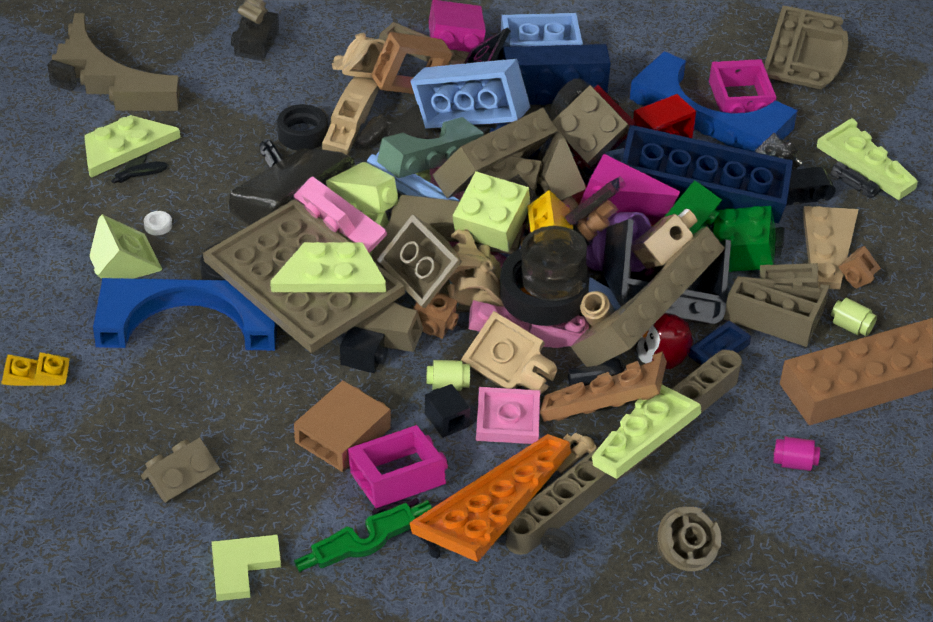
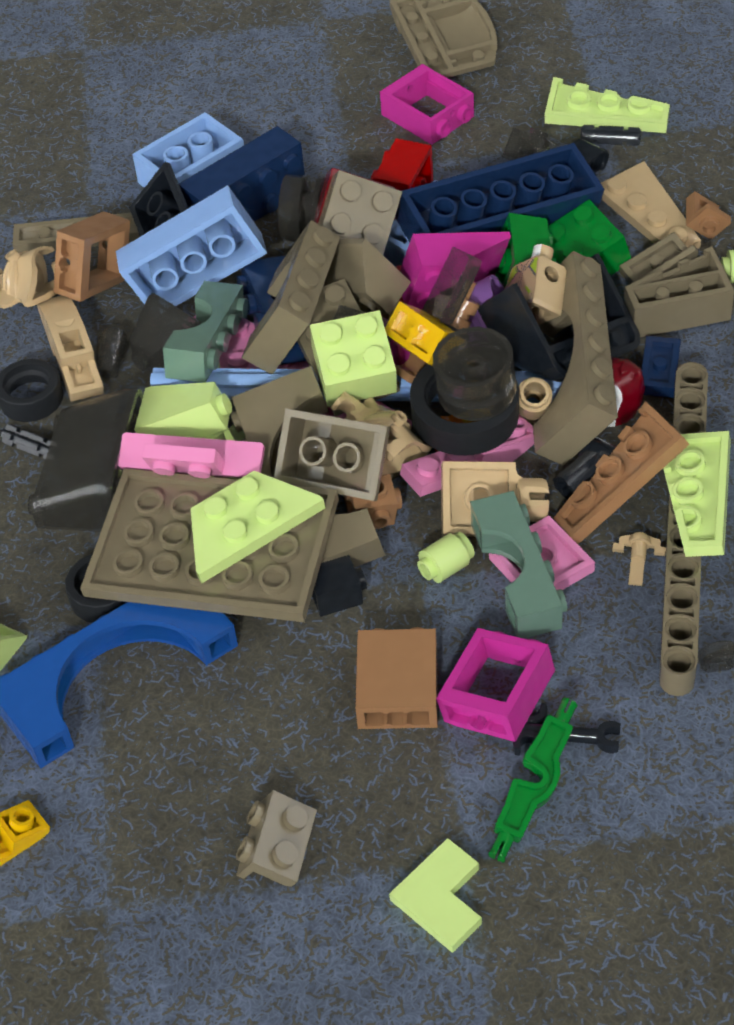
camera: 30 degrees left, 5 degrees up
(447, 410) = (480, 593): black brick -> none
(457, 24) = (89, 190): dark pink brick -> none
(468, 428) = (531, 599): none -> sand green arch
(486, 507) = (626, 665): orange wing -> none
(737, 130) = (475, 142): blue arch -> none

